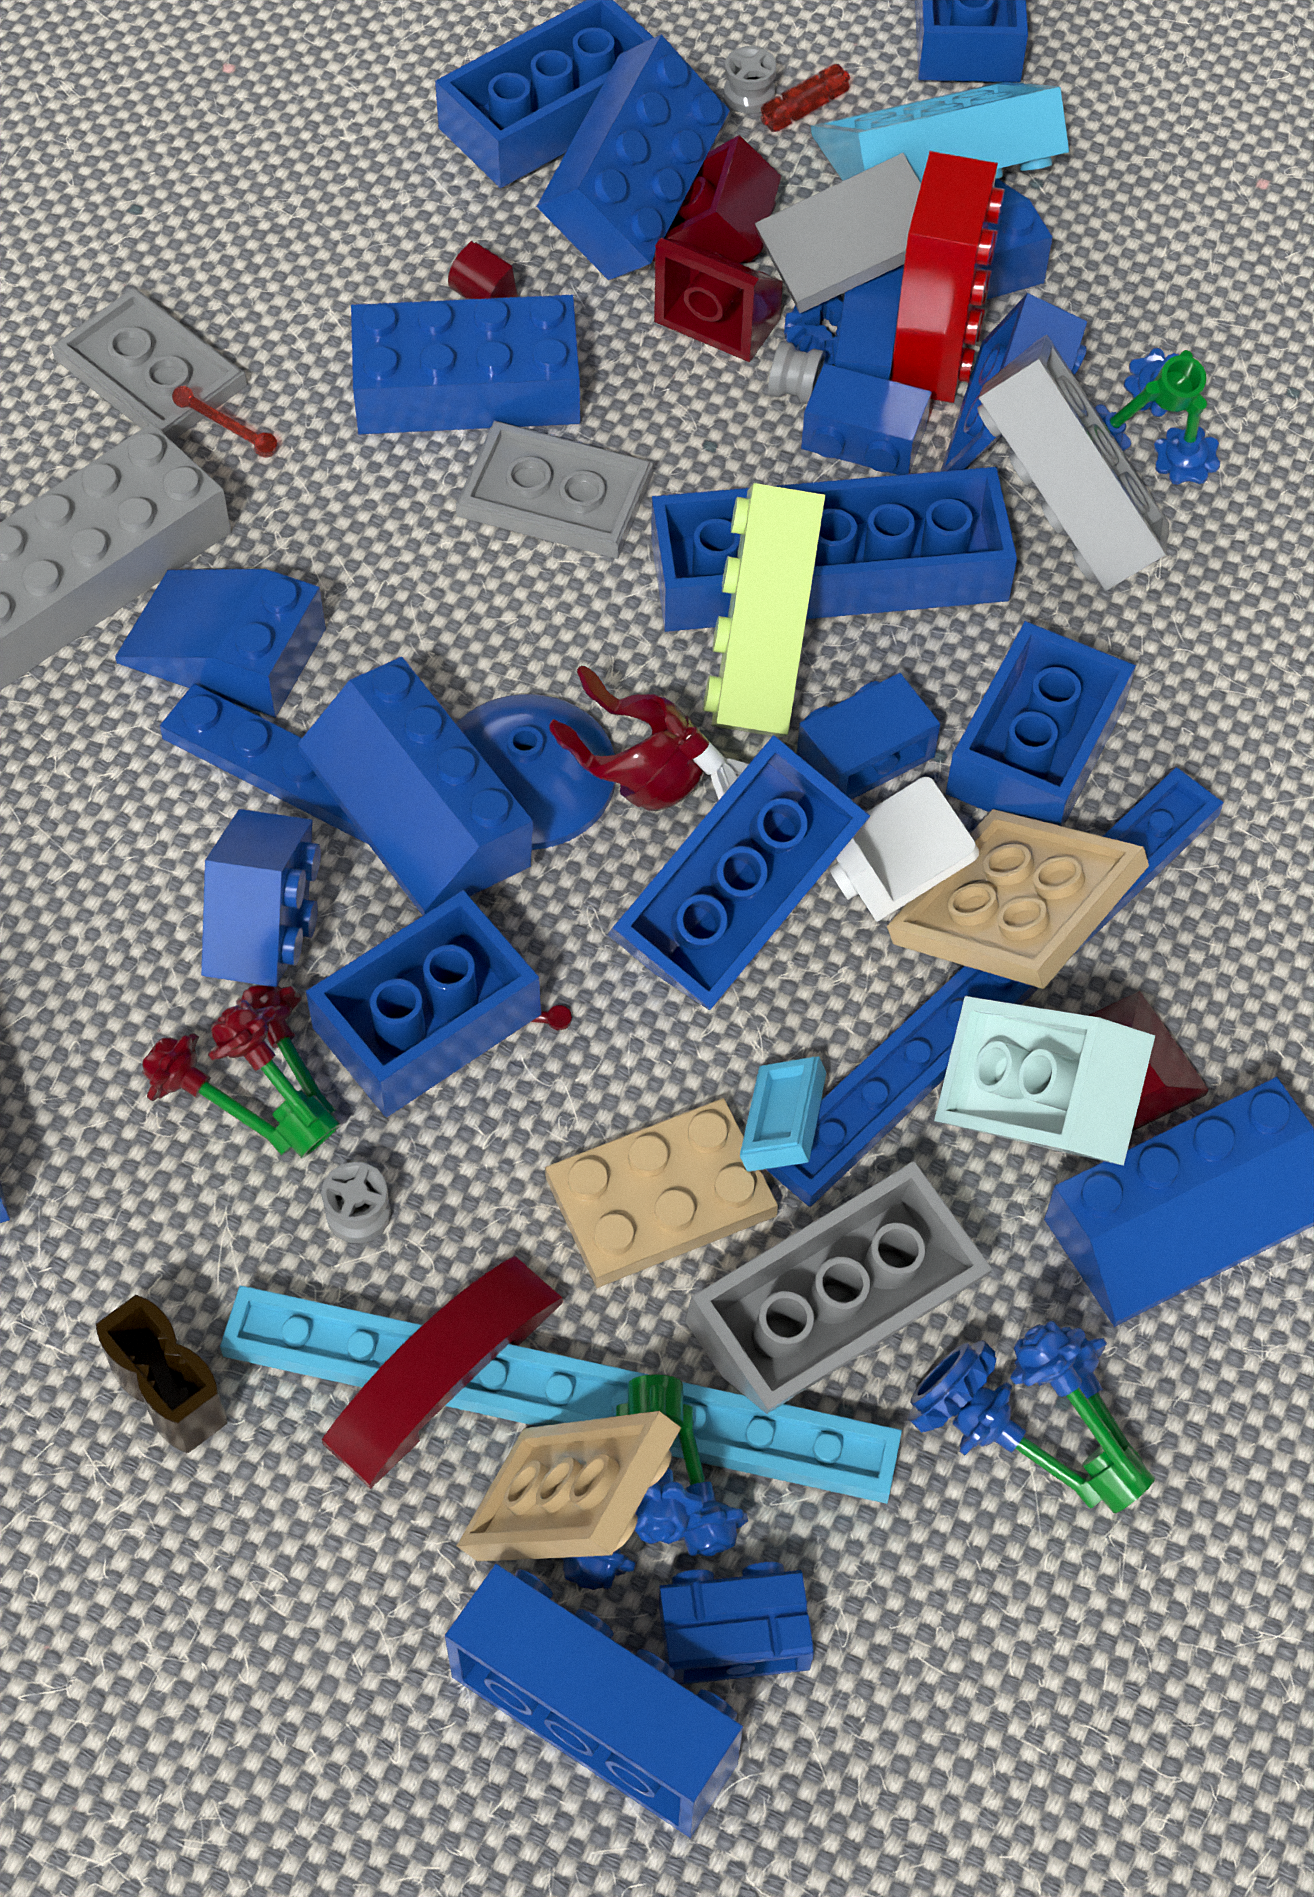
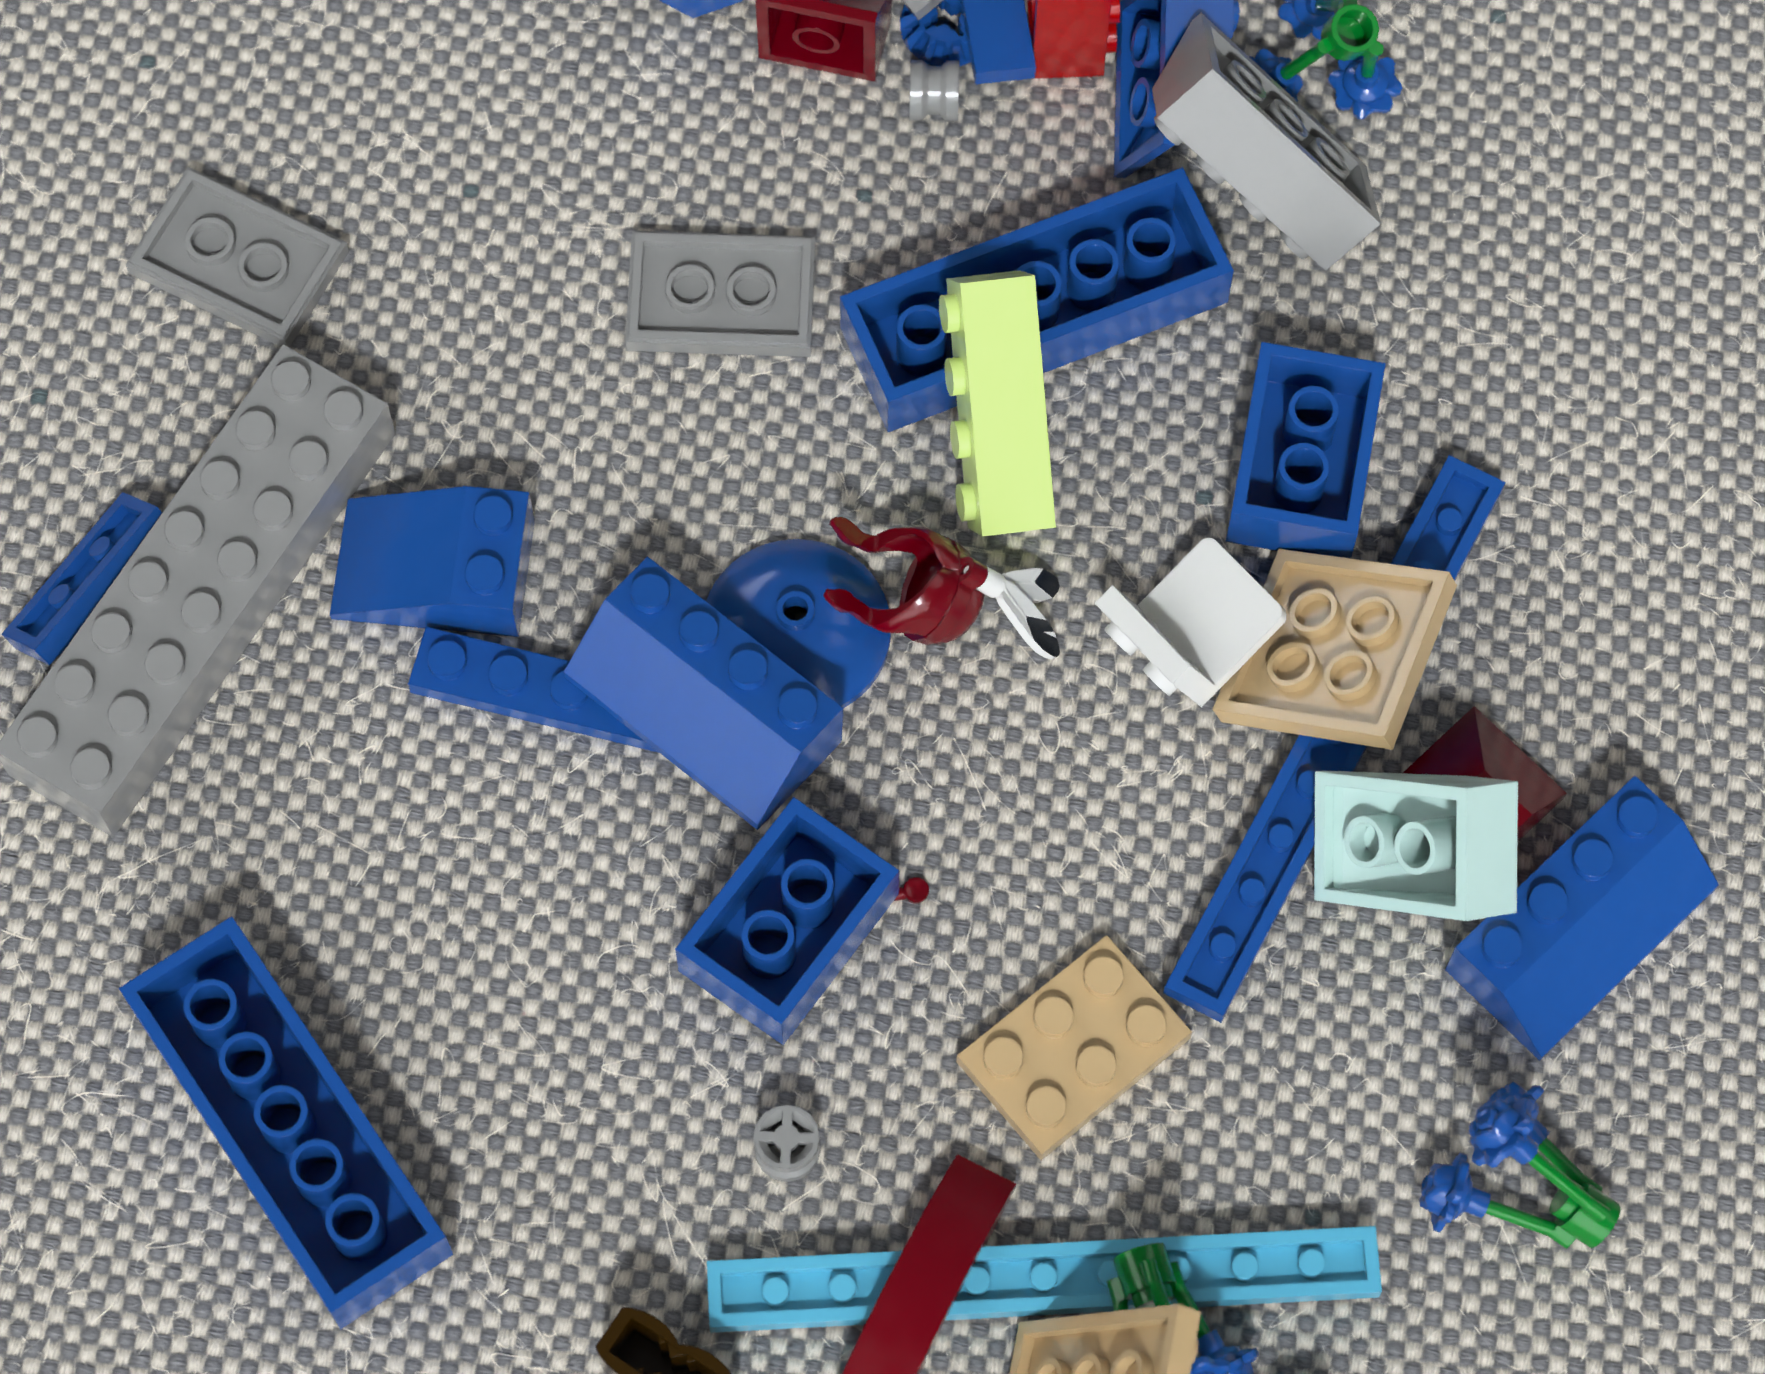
camera: 15 degrees left, 10 degrees up
(240, 1031) = (633, 1014): plant -> none
(258, 897) = (595, 860): blue brick -> none
(264, 443) = (395, 320): clear red hinge -> none
(465, 364) = (583, 173): blue brick -> none
(481, 274) = (565, 62): dark red brick -> none
(739, 874) = (1056, 701): blue slope -> none
(783, 1114) = (1172, 939): medium azure tile -> none
(835, 1289) = (1280, 1110): light grey slope -> none
(865, 420) = (1023, 131): blue brick -> none
(869, 736) = (1131, 504): blue brick -> none
(951, 1385) = (1410, 1170): blue gear -> none

